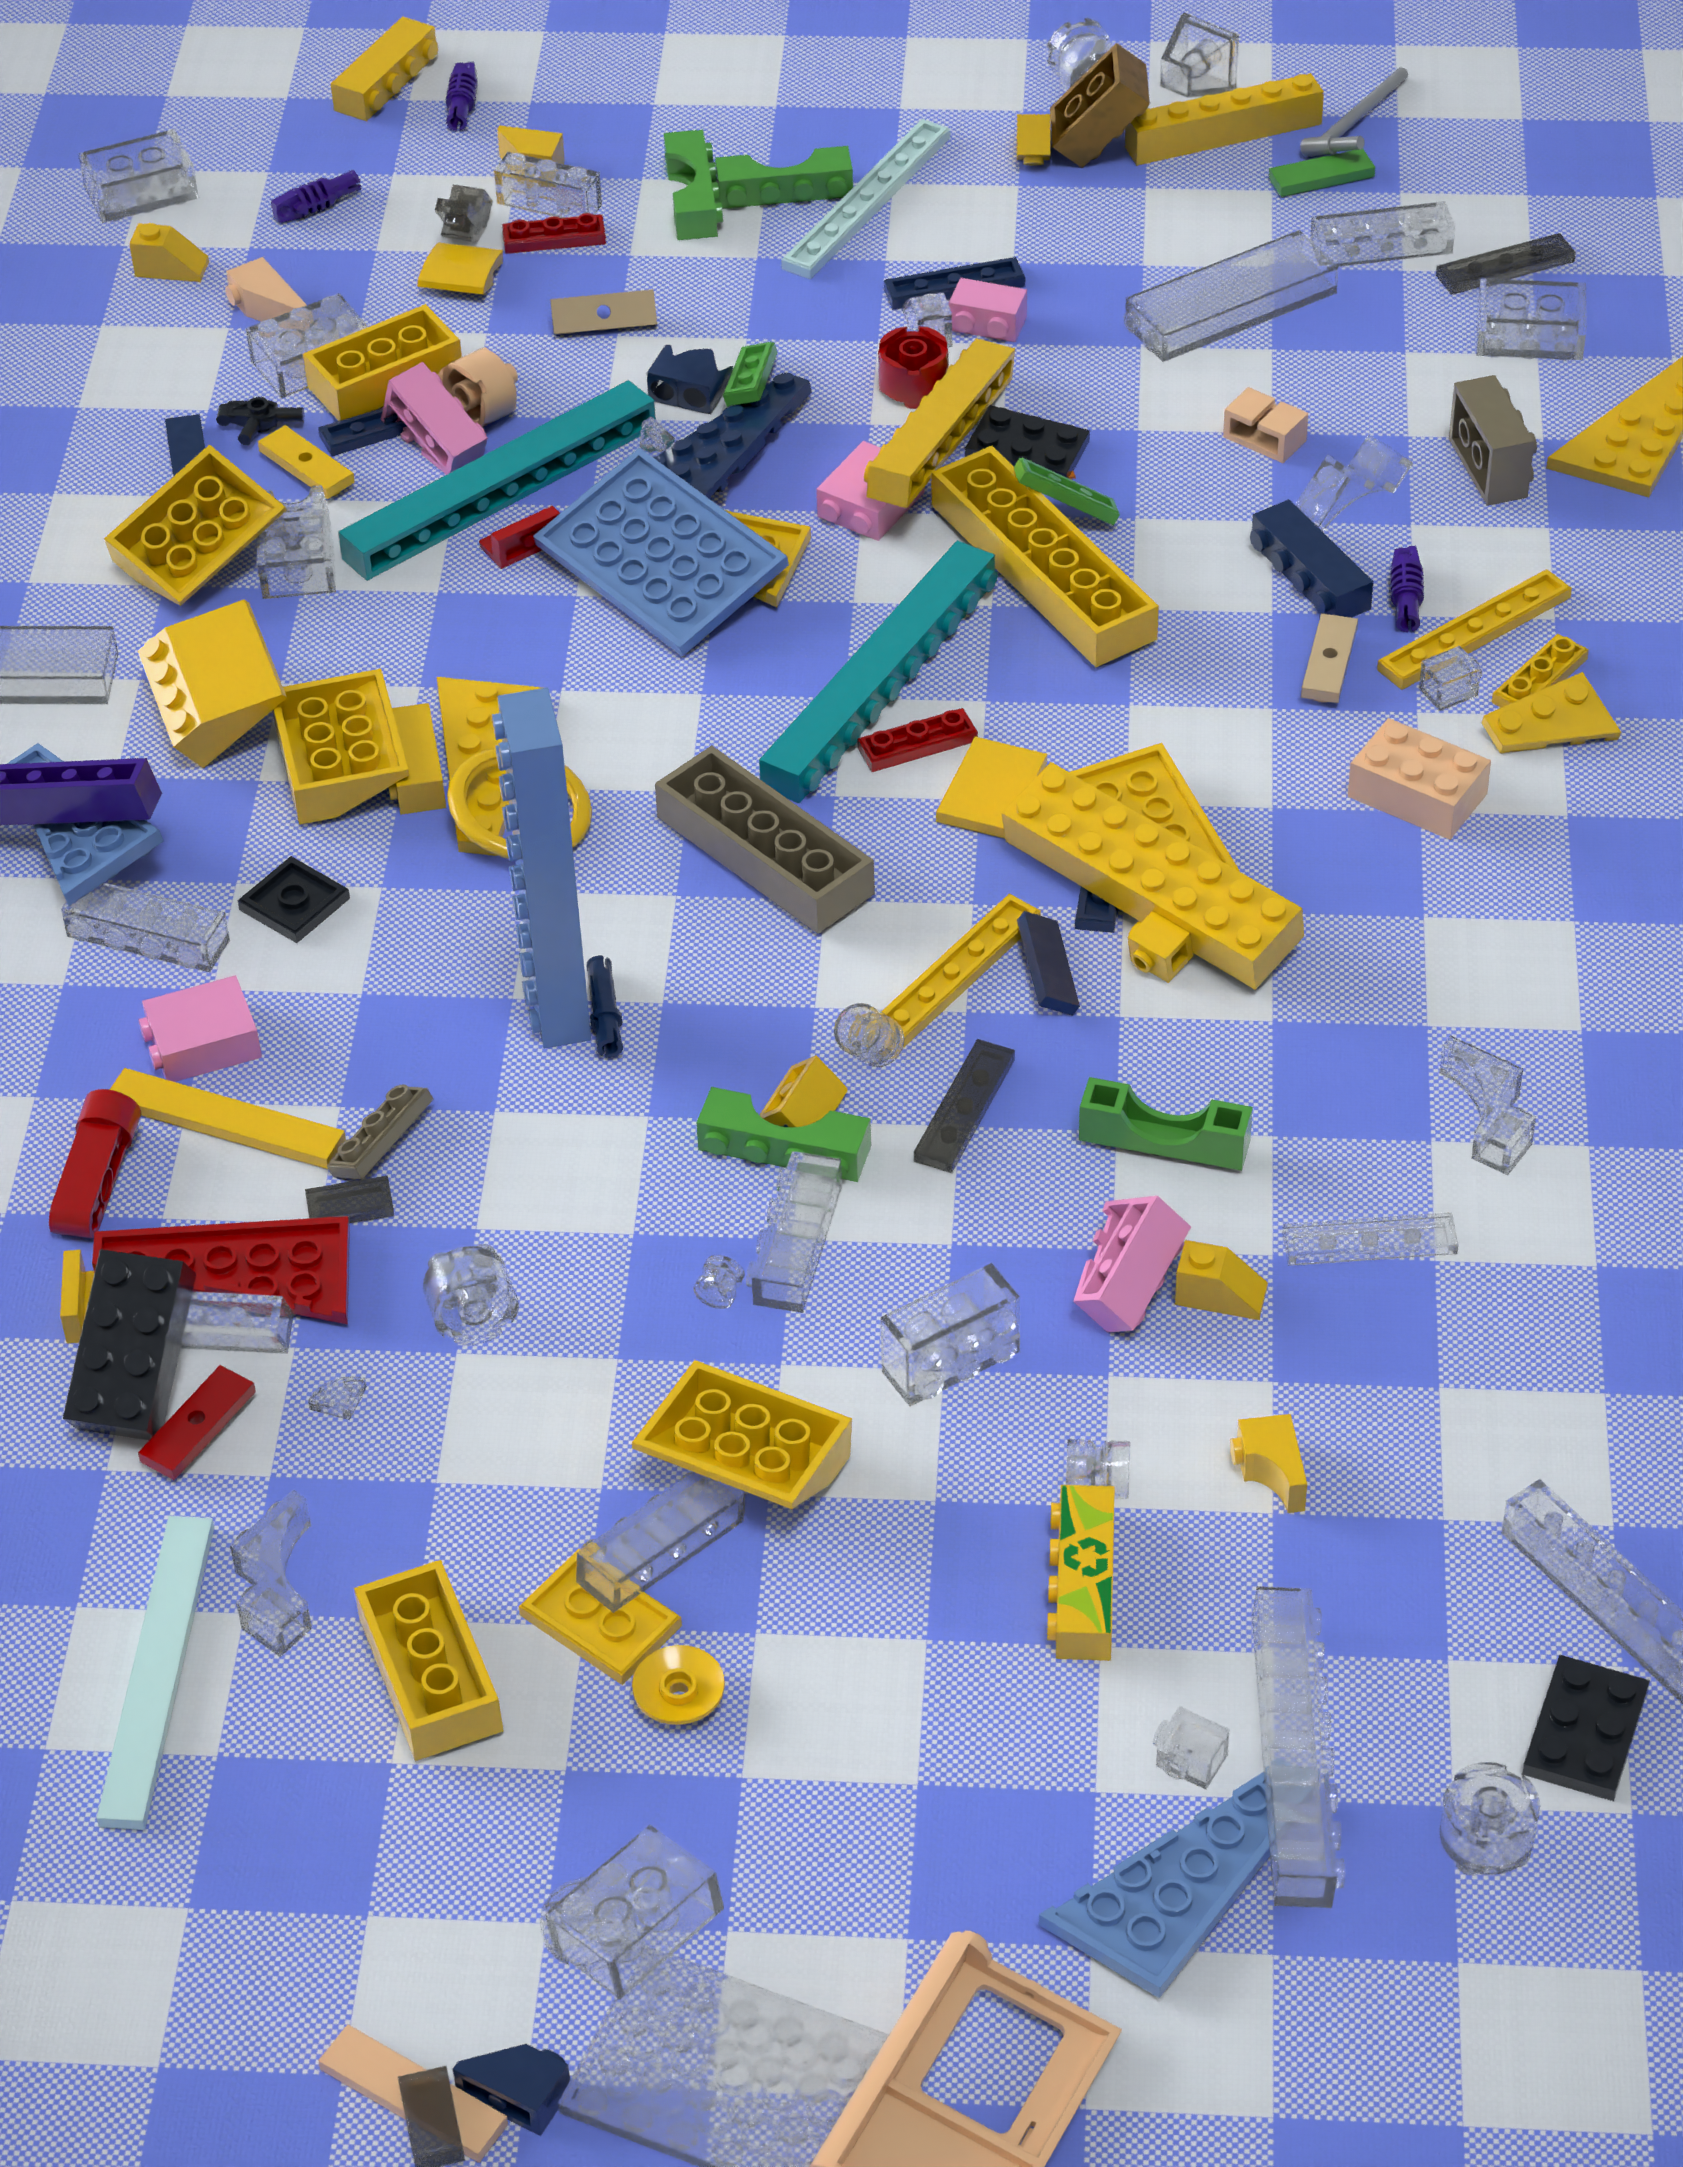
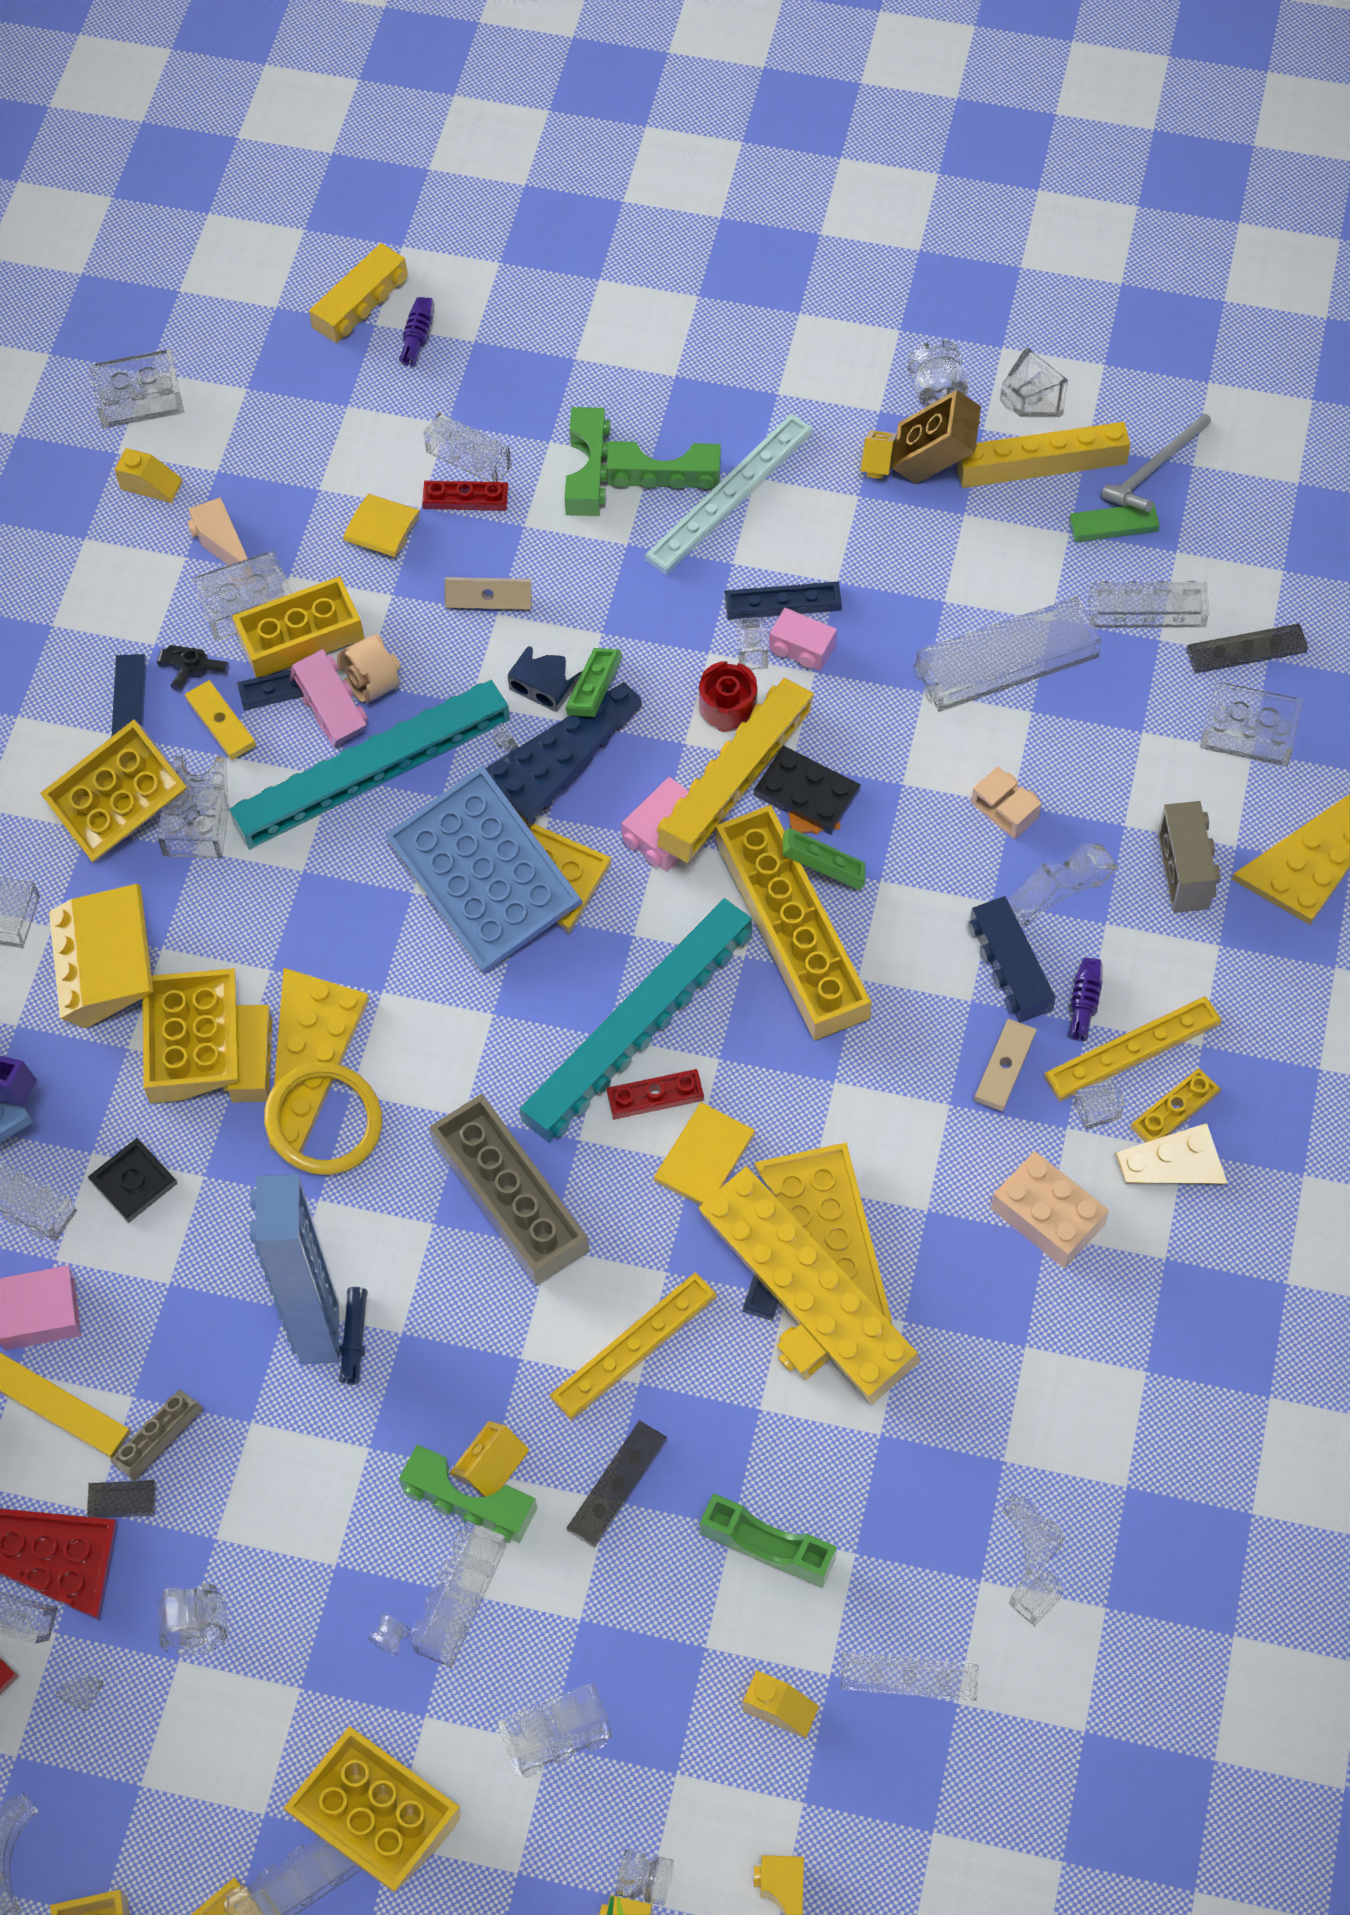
camera: 10 degrees right, 15 degrees up
(313, 196) = (262, 432): dark purple hinge -> none
(464, 213) = (394, 470): clear smoke brick -> none
(517, 540) = (370, 829): red panel -> none
(531, 143) = (463, 404): yellow slope -> none
(869, 1035) = (551, 1411): clear wheel -> none
(1048, 963) = (711, 1351): dark blue tile -> none
(1130, 1261) = (709, 1682): bright pink wedge -> none

